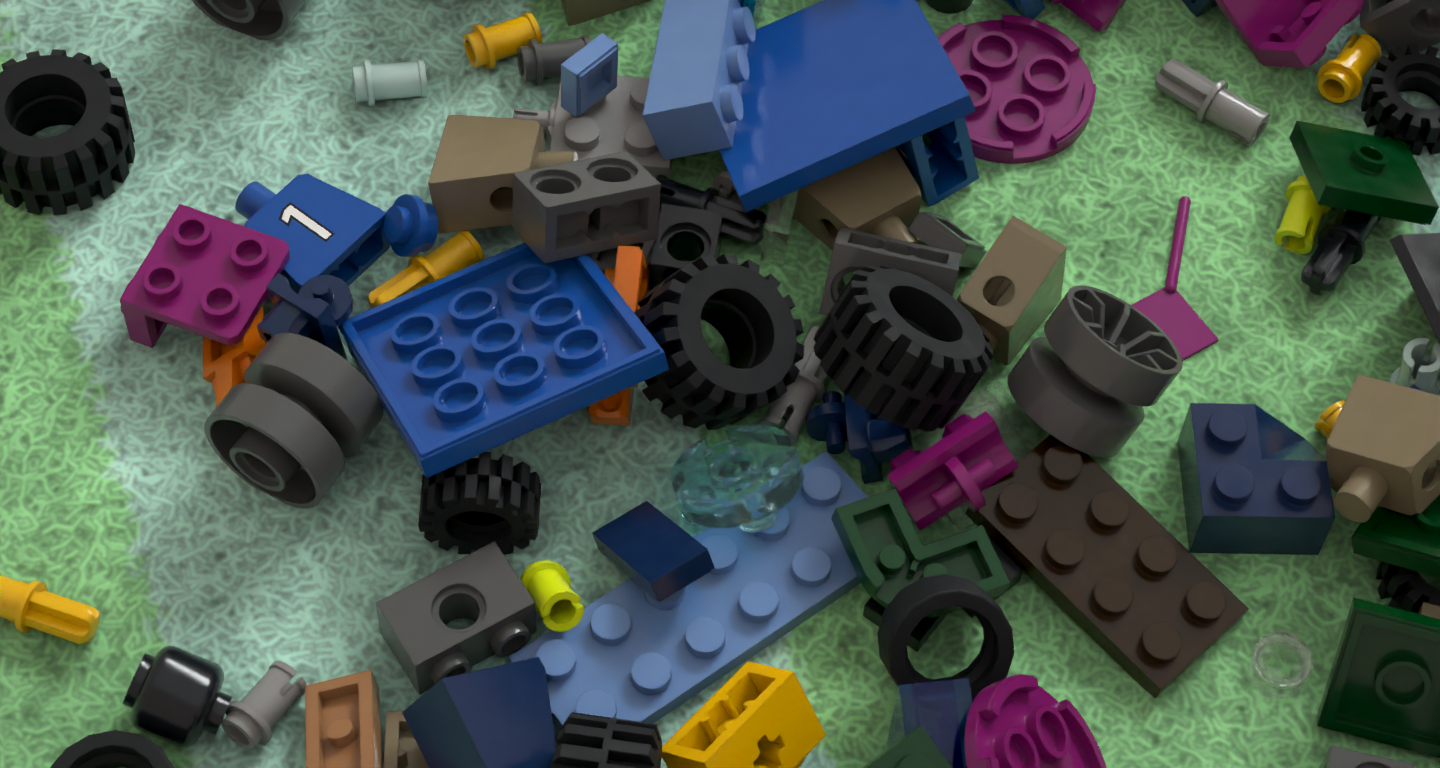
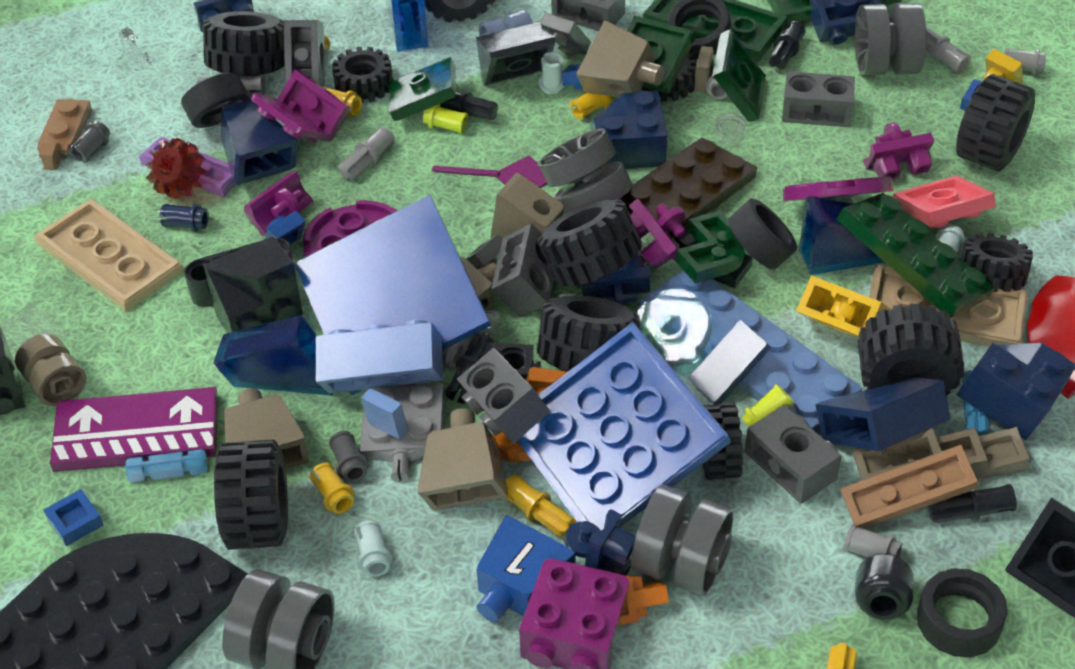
camera: 90 degrees left, 10 degrees down
(410, 225) = (514, 500): blue plate -> none

